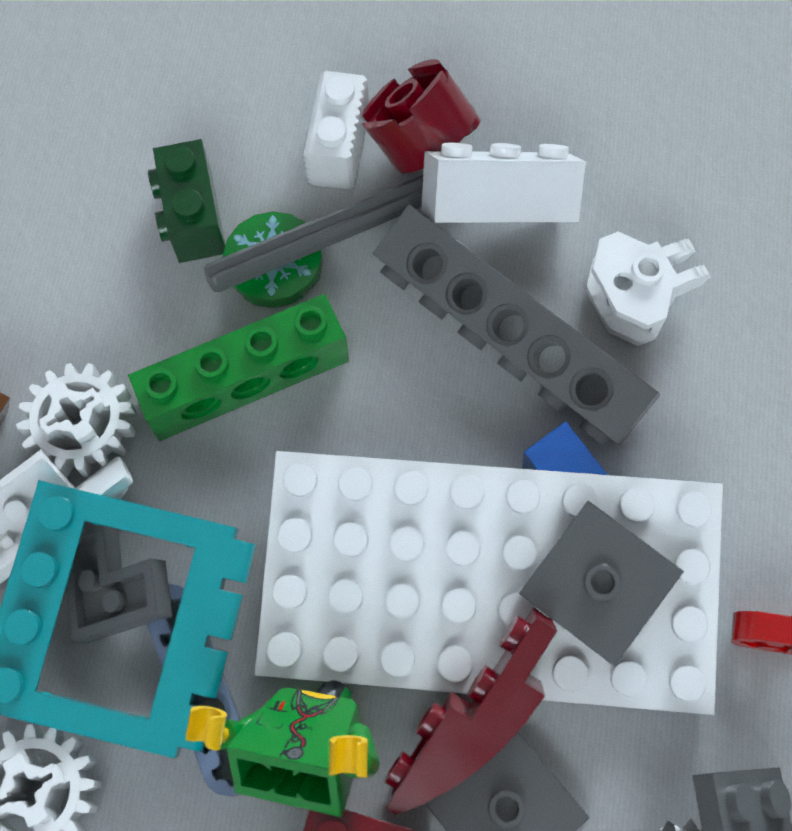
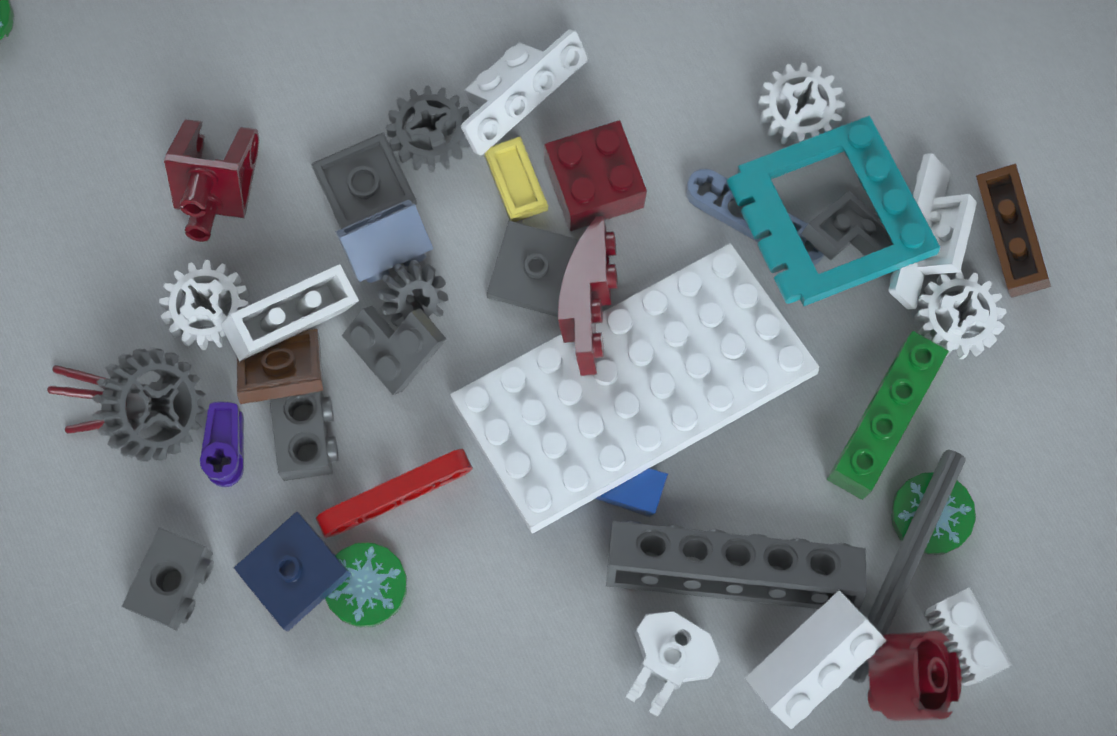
camera: 140 degrees right, 5 degrees up
(188, 200) = (1022, 508): dark green brick -> none
(294, 748) = (677, 212): green torso -> none
(601, 583) = (567, 413): dark grey plate -> none

